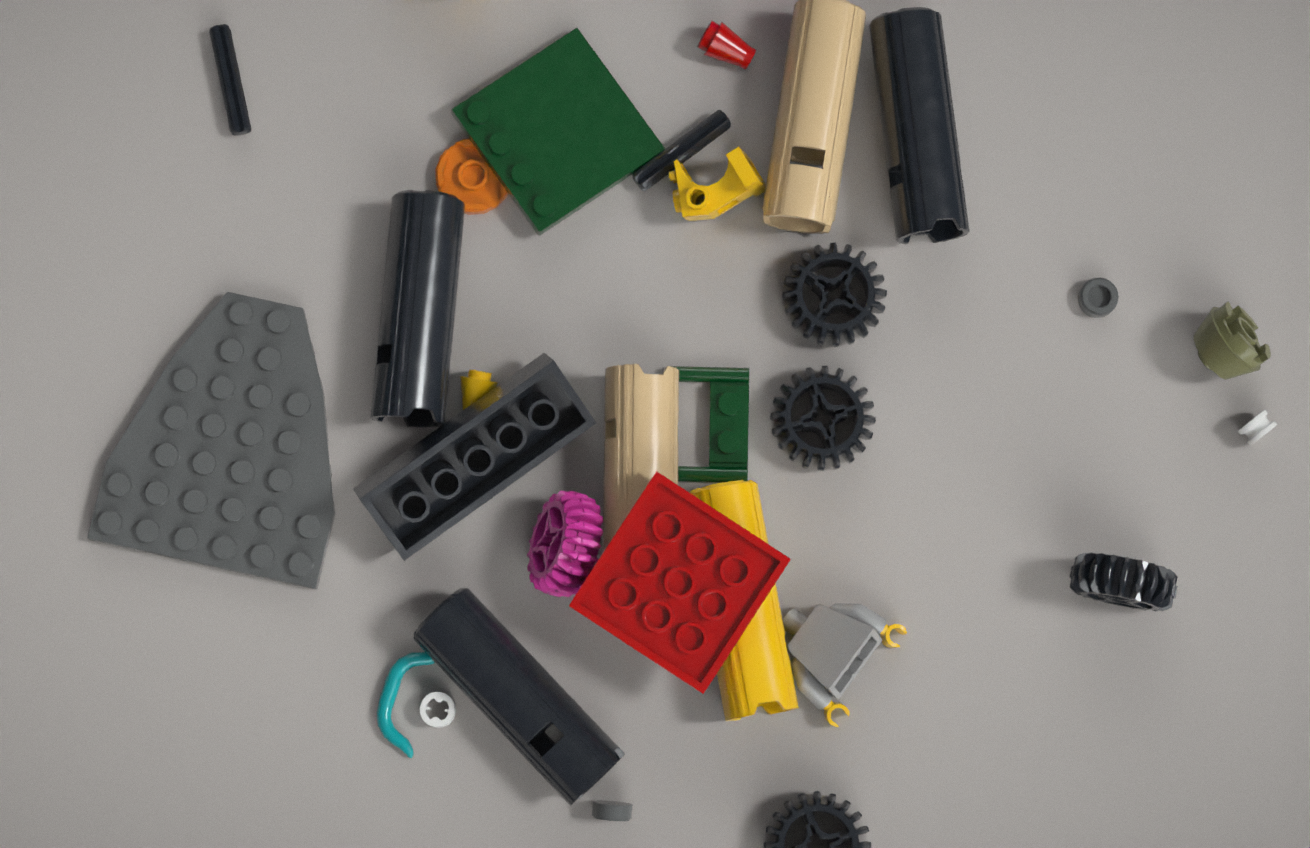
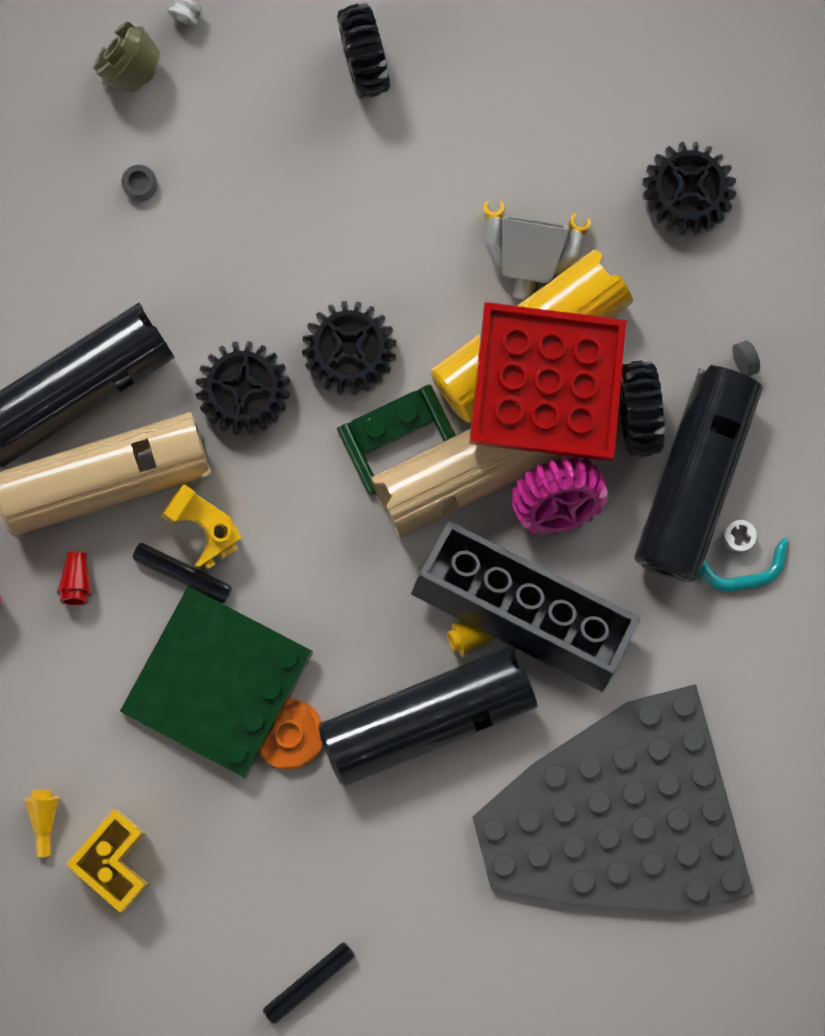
camera: 115 degrees left, 0 degrees up
(611, 670) = (641, 409): none -> black gear

